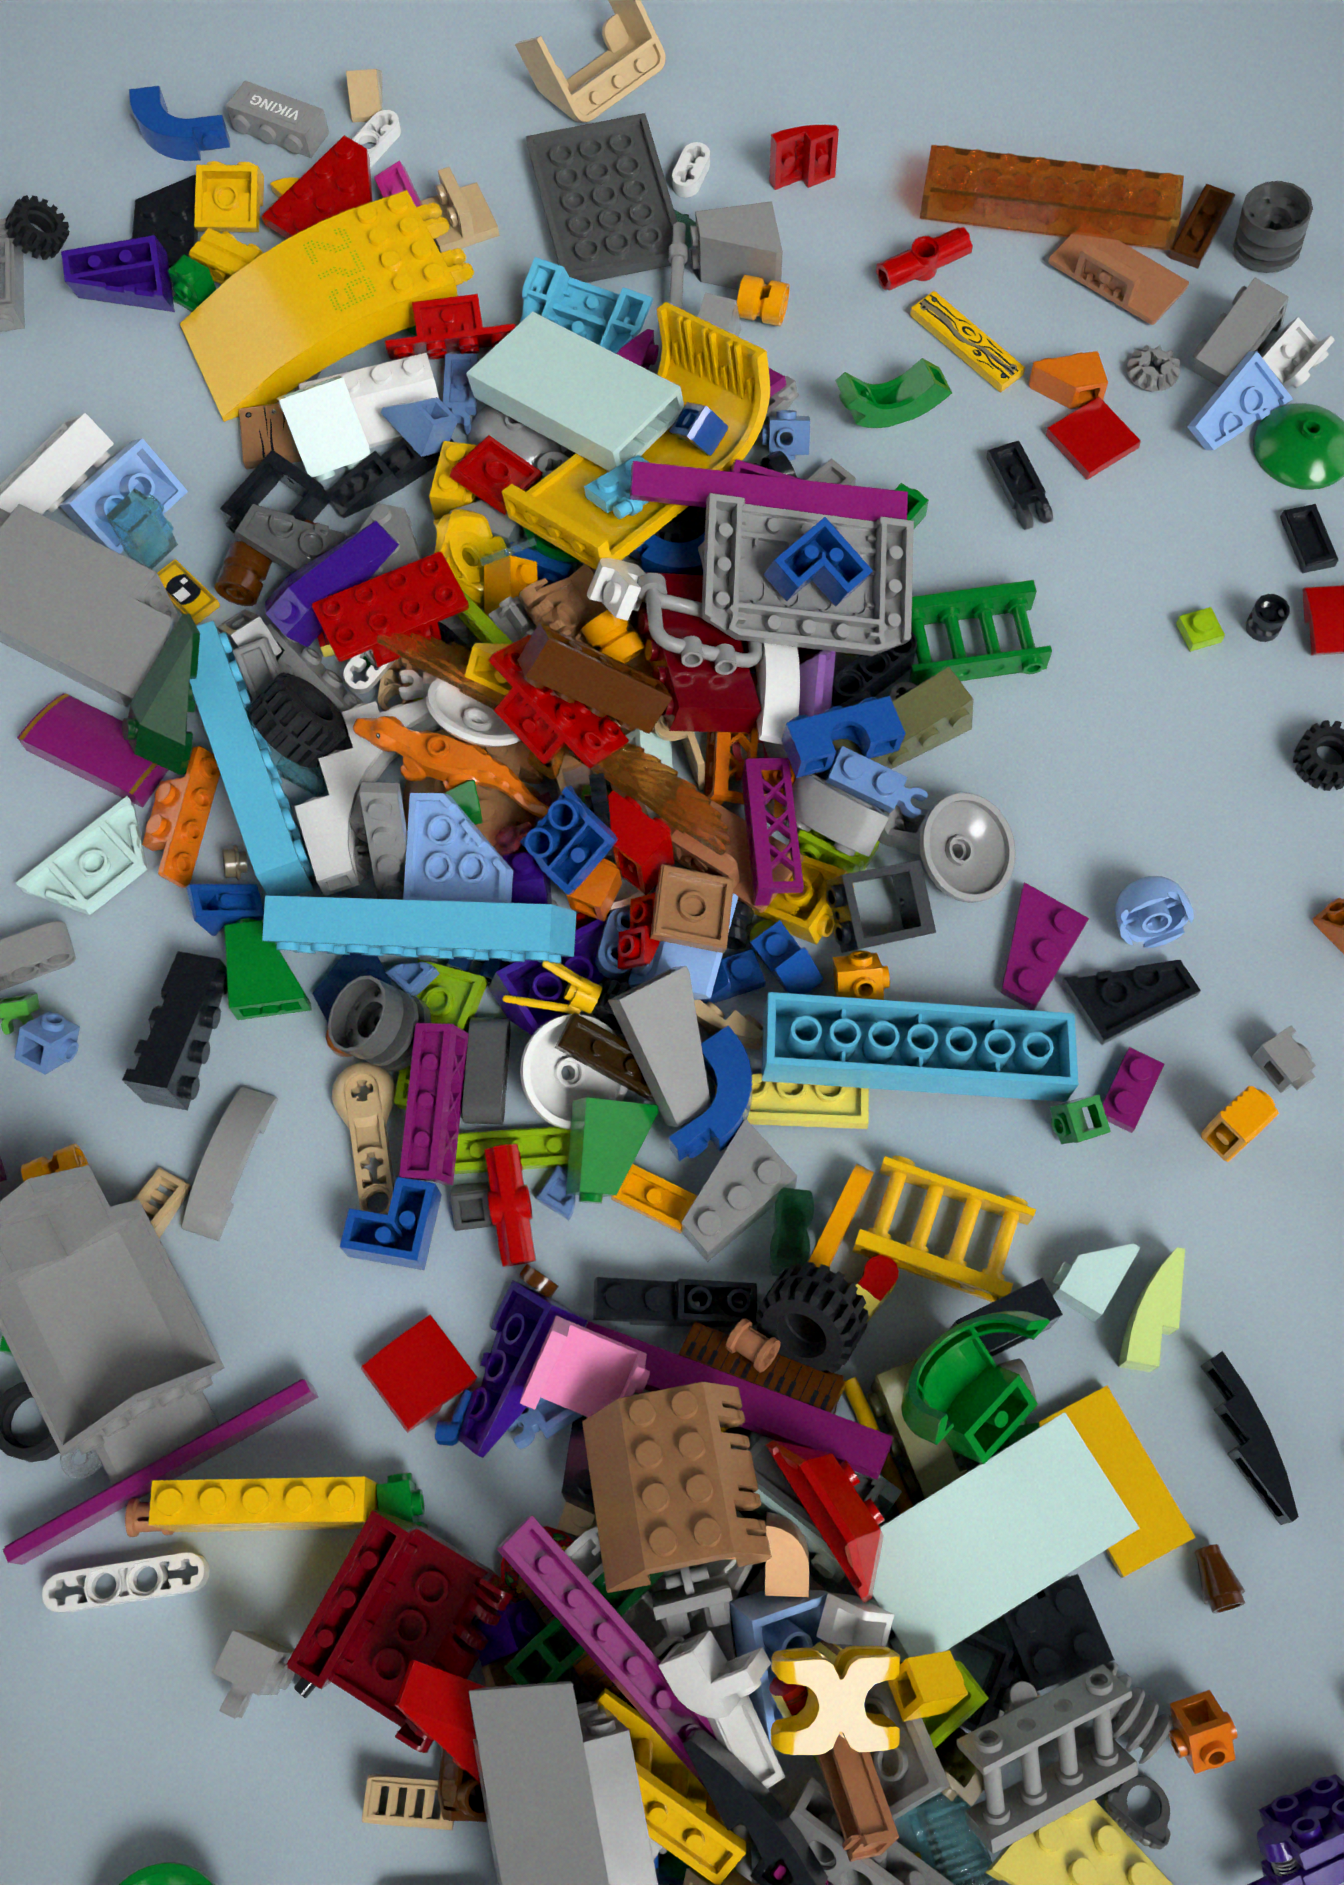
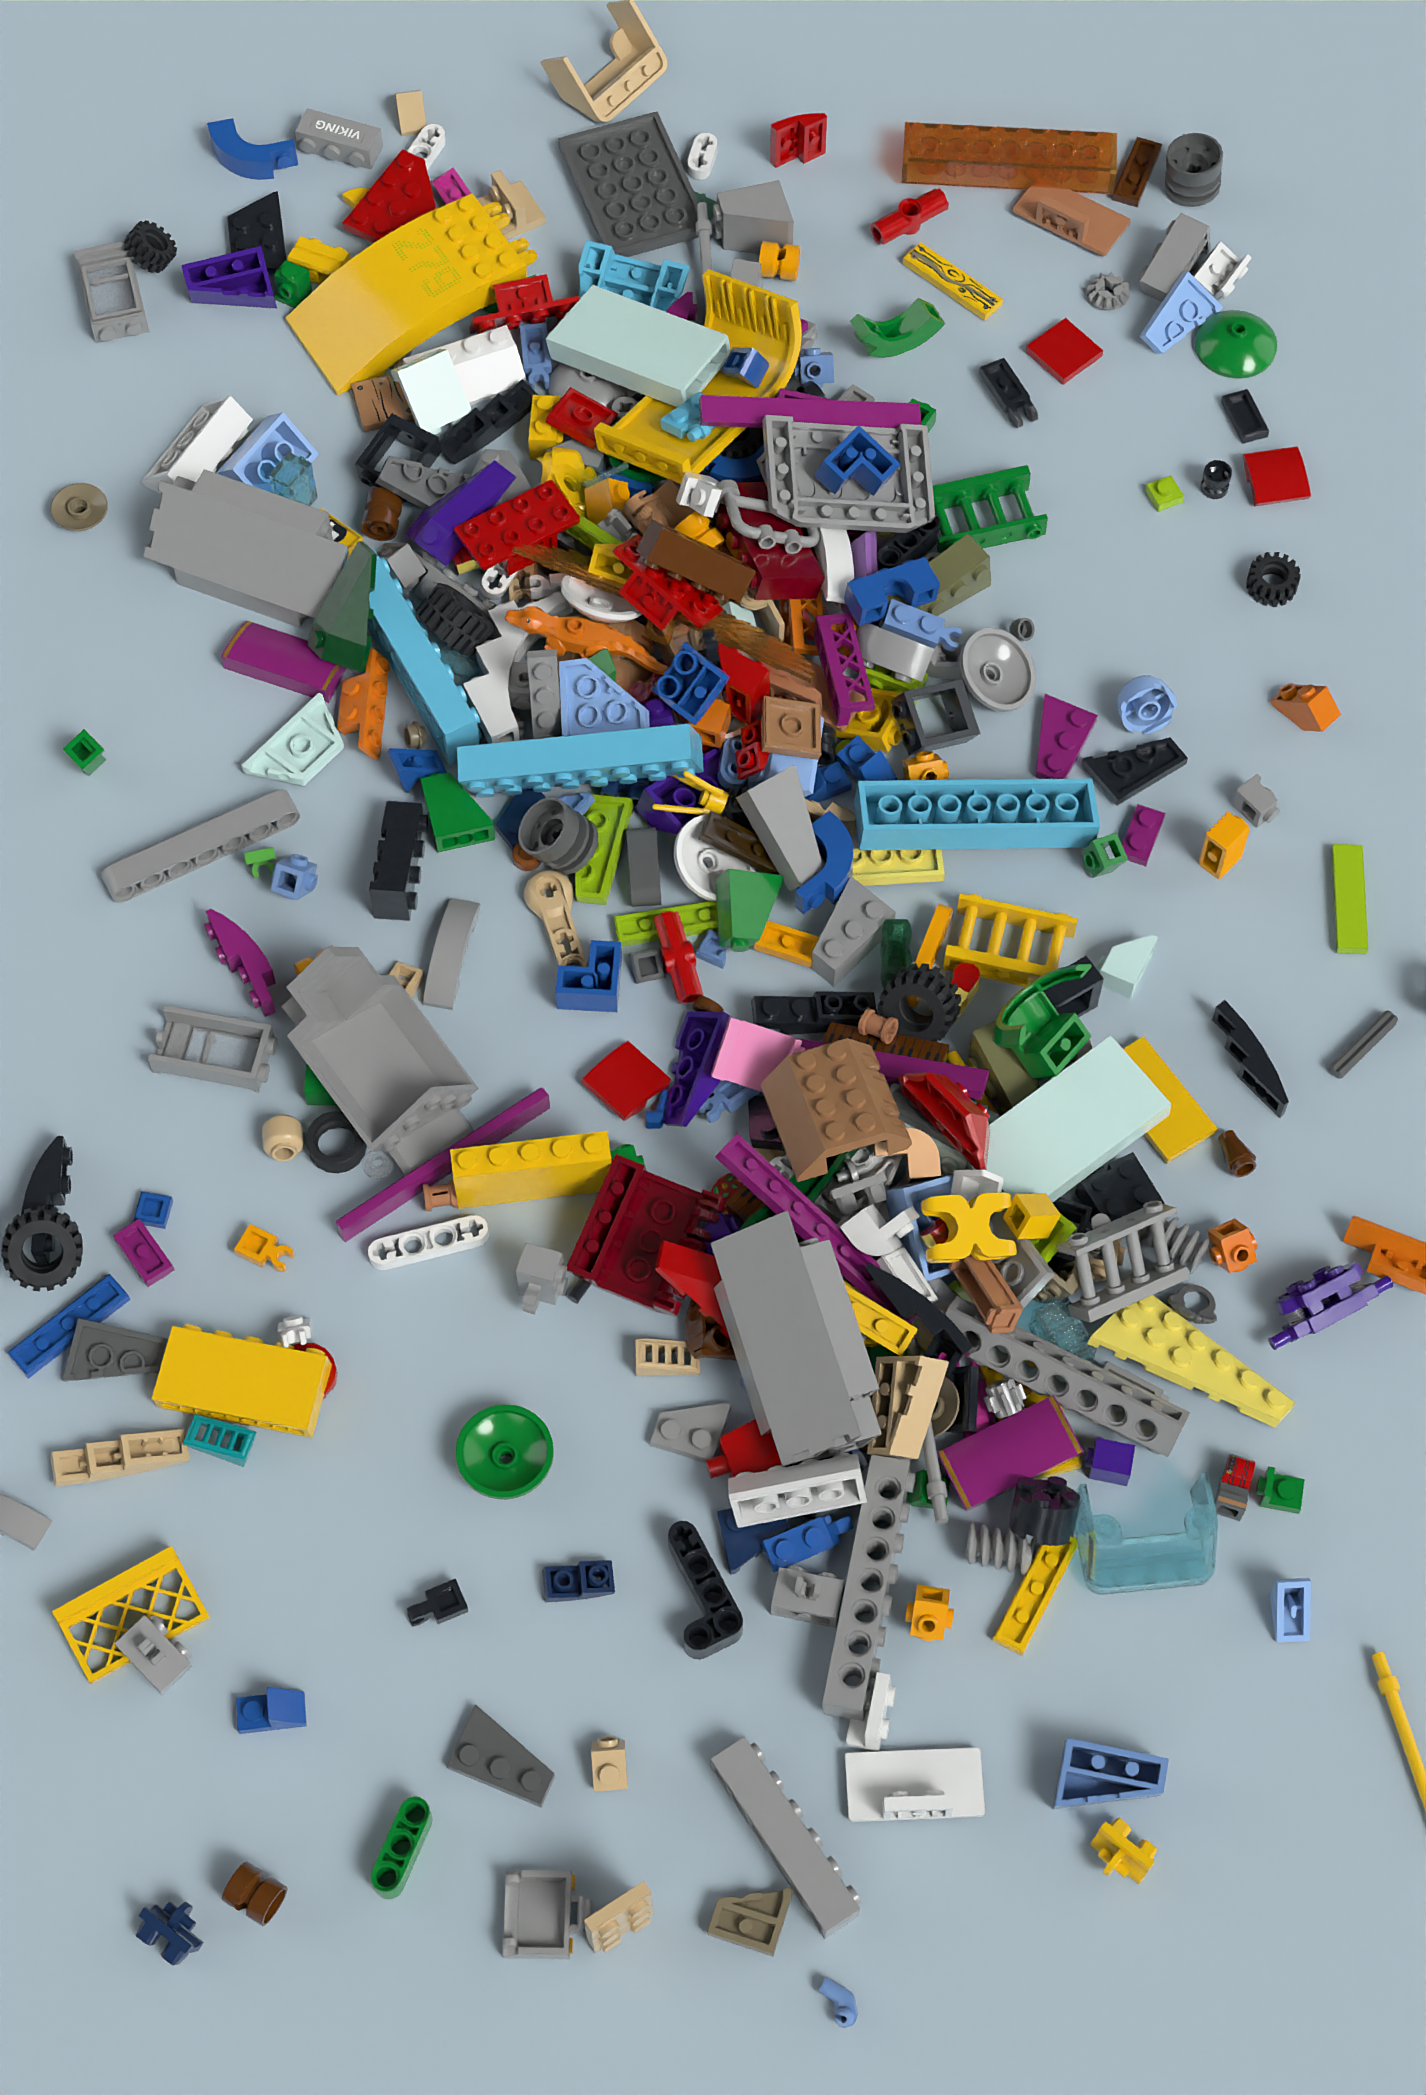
camera: 10 degrees left, 5 degrees down
(228, 197) = (309, 209): yellow plate -> none
(257, 665) = (413, 583): light grey tile -> none
(422, 423) = (513, 382): medium blue slope -> none
(434, 1103) = (609, 886): magenta fence -> none
(1004, 793) = (1022, 629): none -> dark grey hinge
(1070, 379) = (1040, 305): orange slope -> none
(1153, 1315) = (1174, 985): yellowish green slope -> none

